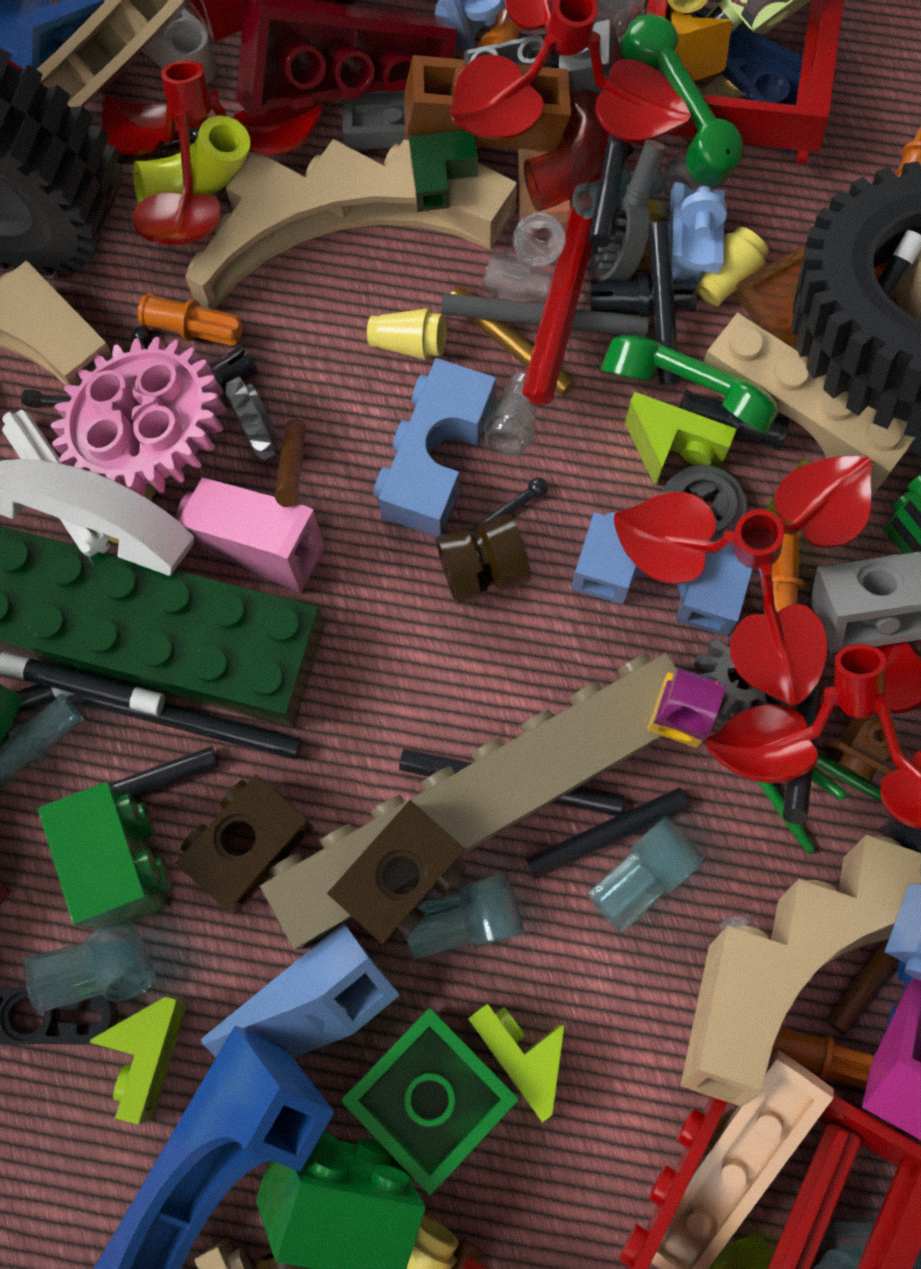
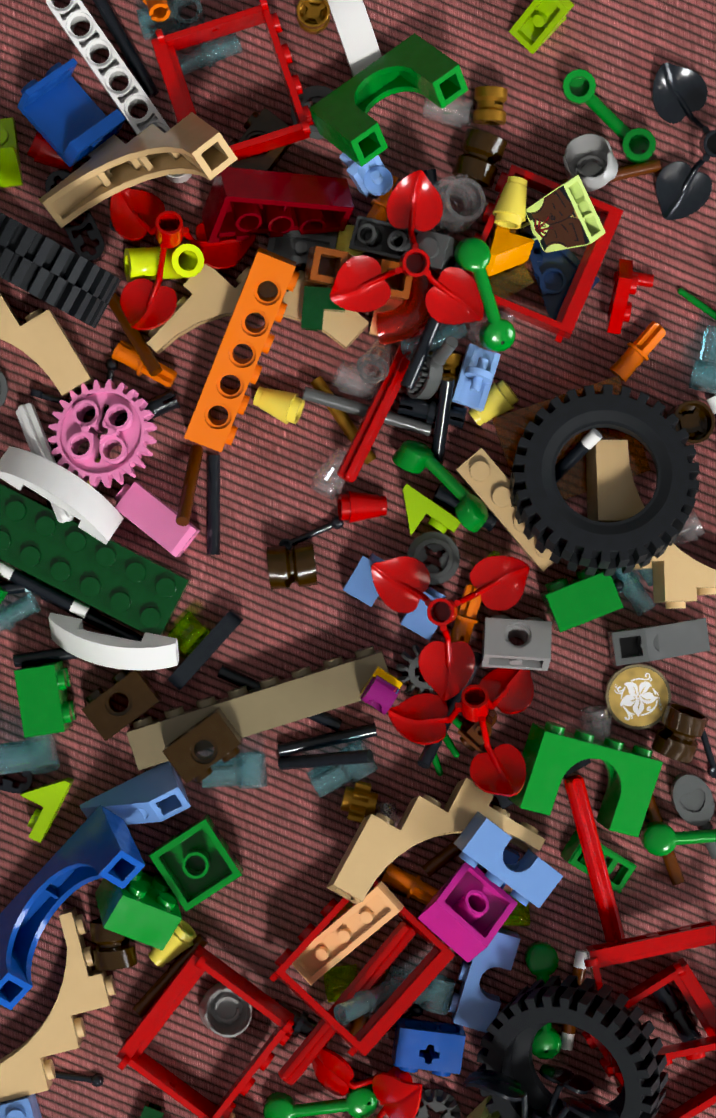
camera: 10 degrees right, 15 degrees up
(164, 276) = (135, 338): none -> reddish brown bar
(214, 749) = (111, 651): none -> white slope
(252, 418) = (171, 446): dark grey gear -> none
(337, 503) = (213, 504): none -> black bar
(339, 708) = (189, 633): none -> clear neon green slope
(345, 117) = (202, 426): none -> orange brick
(369, 724) = (205, 649): none -> black beam
(448, 407) = (292, 460): medium blue arch -> none
(532, 1071) = (252, 859): lime slope -> none
(568, 451) = (360, 506): none -> red cone
(616, 859) = (325, 759): none -> black bar
(690, 922) = (359, 801): none -> pearl gold gear
(875, 74) = (624, 283): none -> red plate

